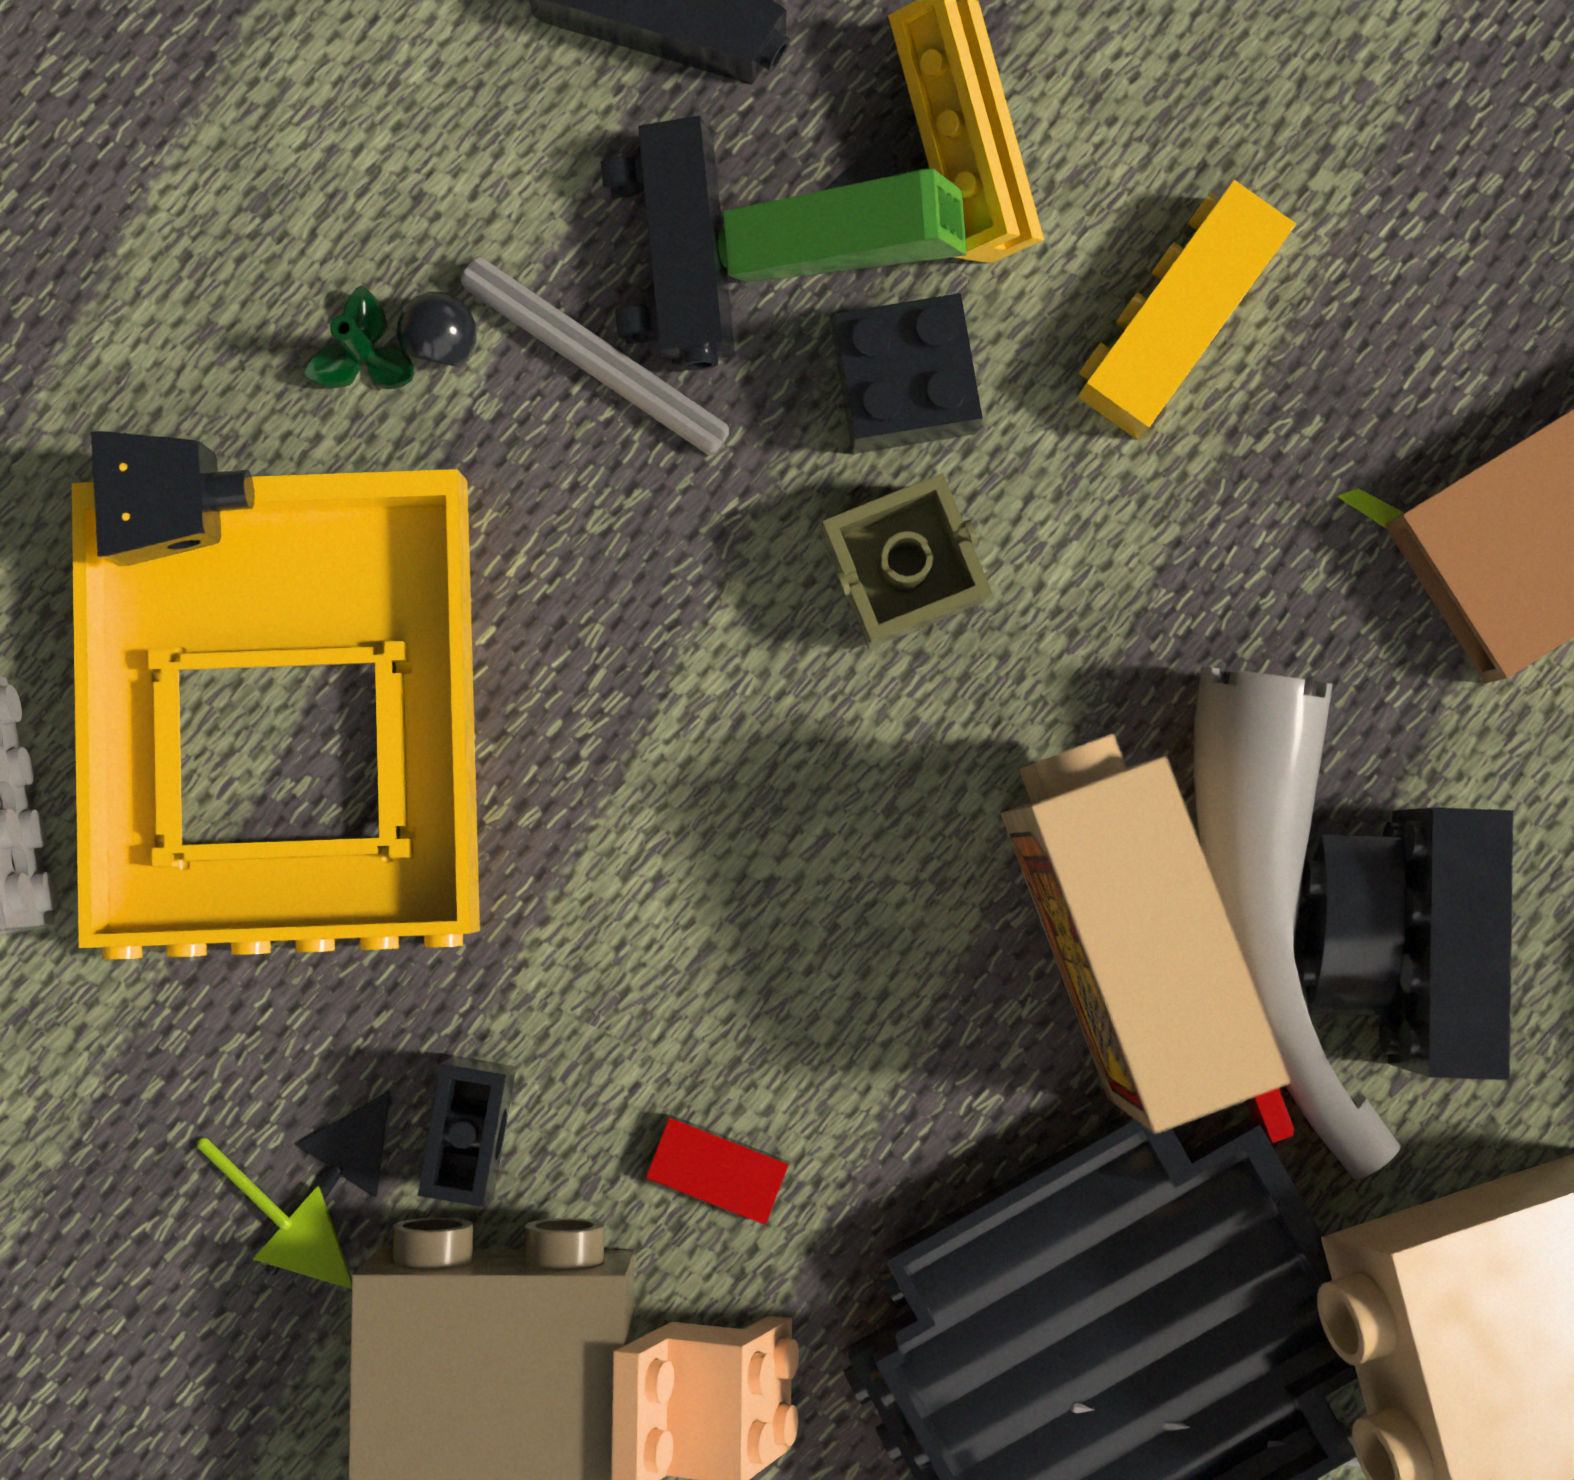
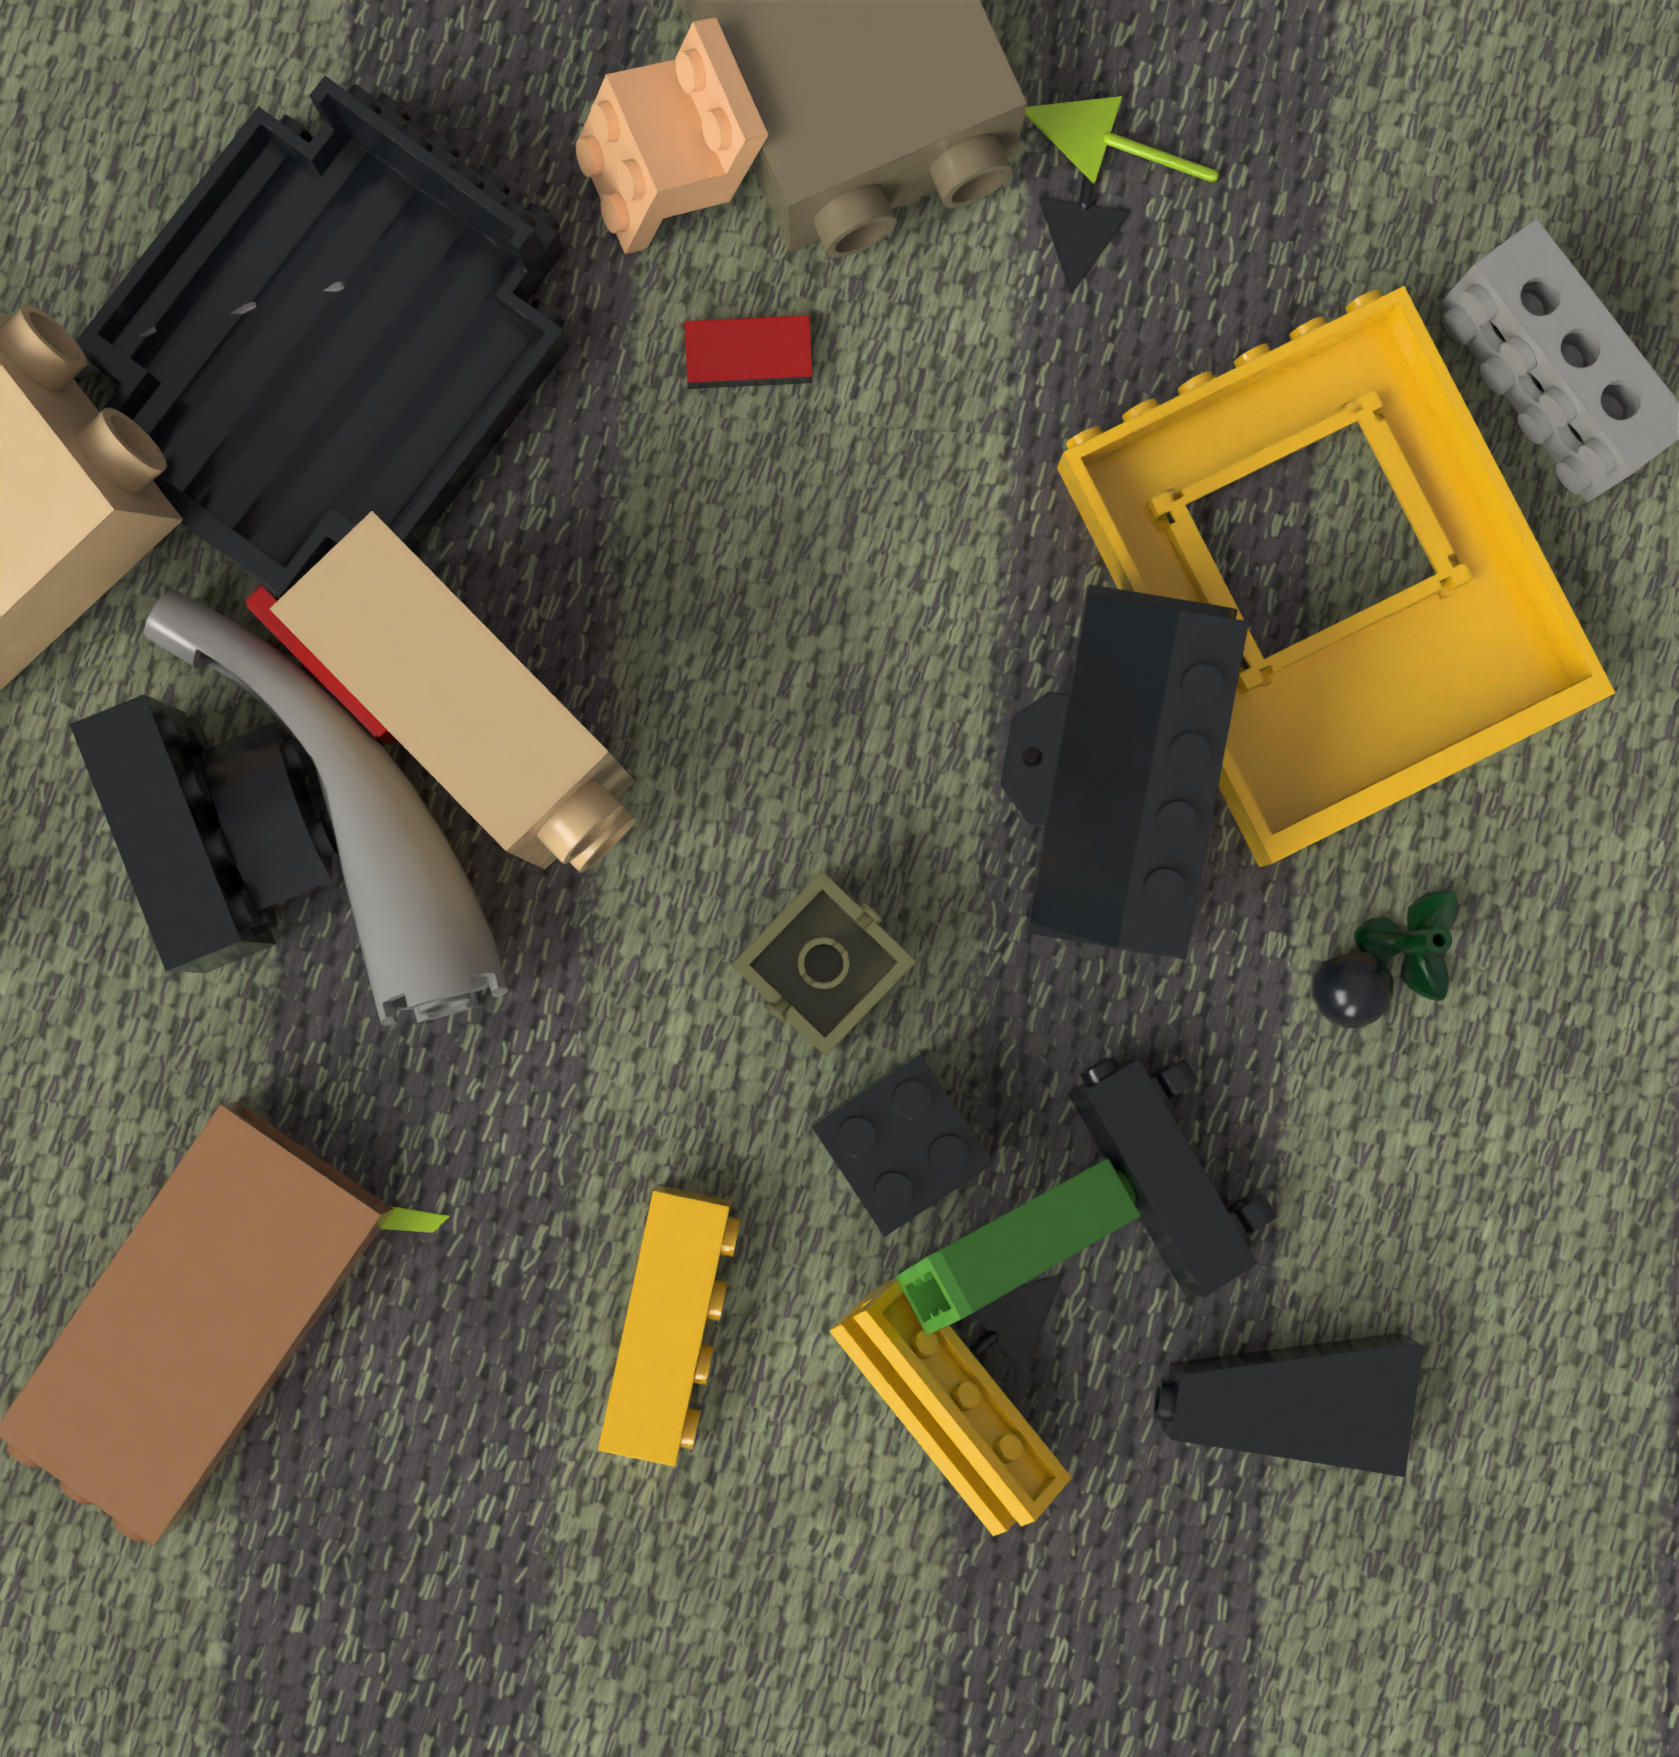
camera: 155 degrees right, 0 degrees up
(160, 496) = (1529, 710): black torso -> none
(467, 1131) = (985, 281): black brick -> none
(550, 606) = (1128, 770): none -> black piece
(595, 356) = (1197, 1034): light grey axle -> none

